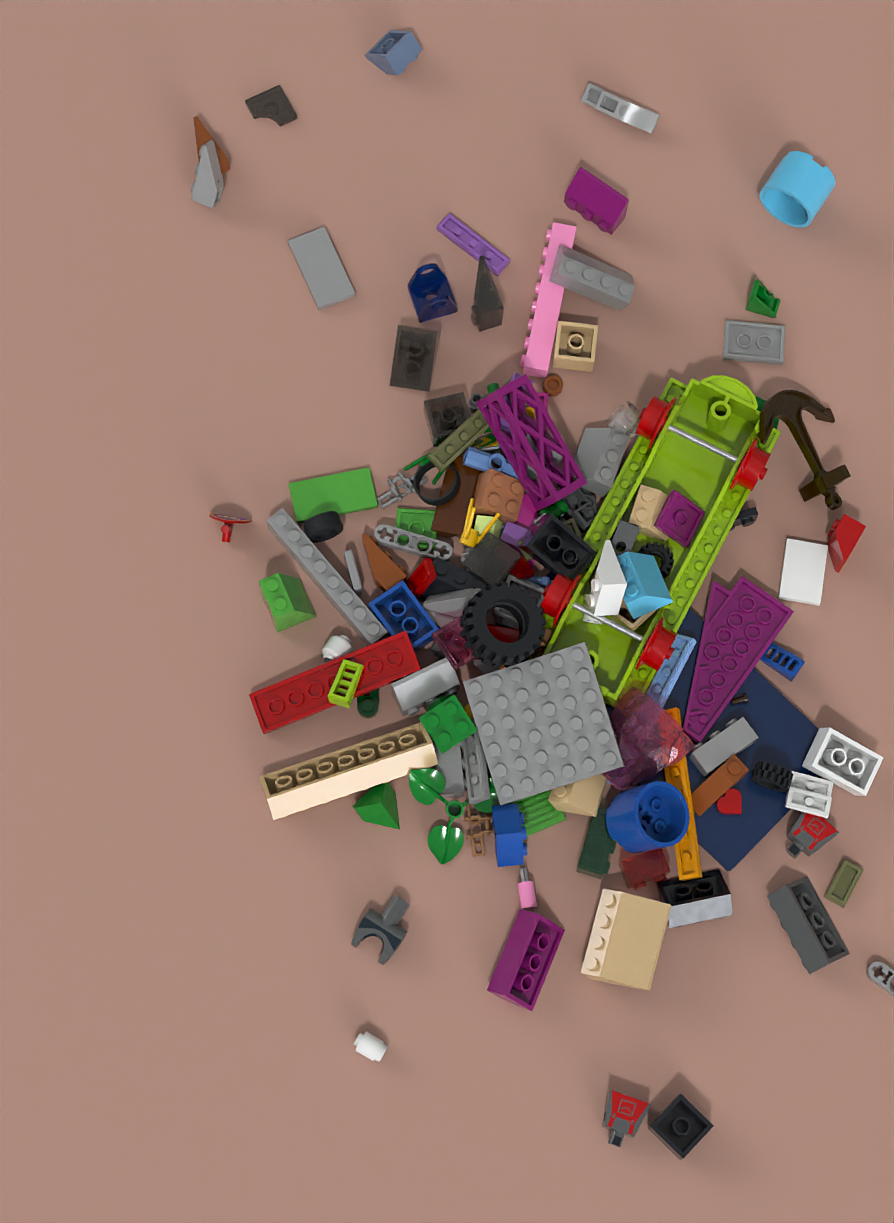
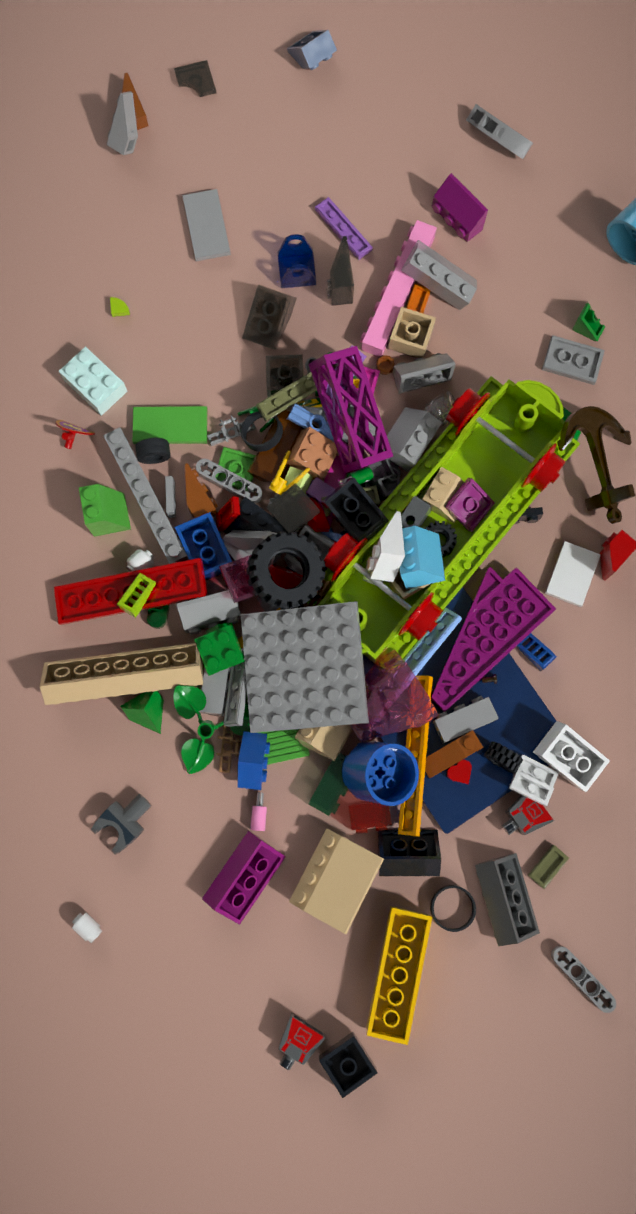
camera: 15 degrees right, 5 degrees up
(238, 463) = (93, 381): none -> light aqua brick
(246, 377) = (118, 307): none -> lime tile
(572, 307) = (418, 298): none -> orange tile
(596, 386) = (423, 372): none -> light grey slope
(712, 1024) = (398, 975): none -> yellow brick
(769, 931) = (473, 908): none -> black tyre

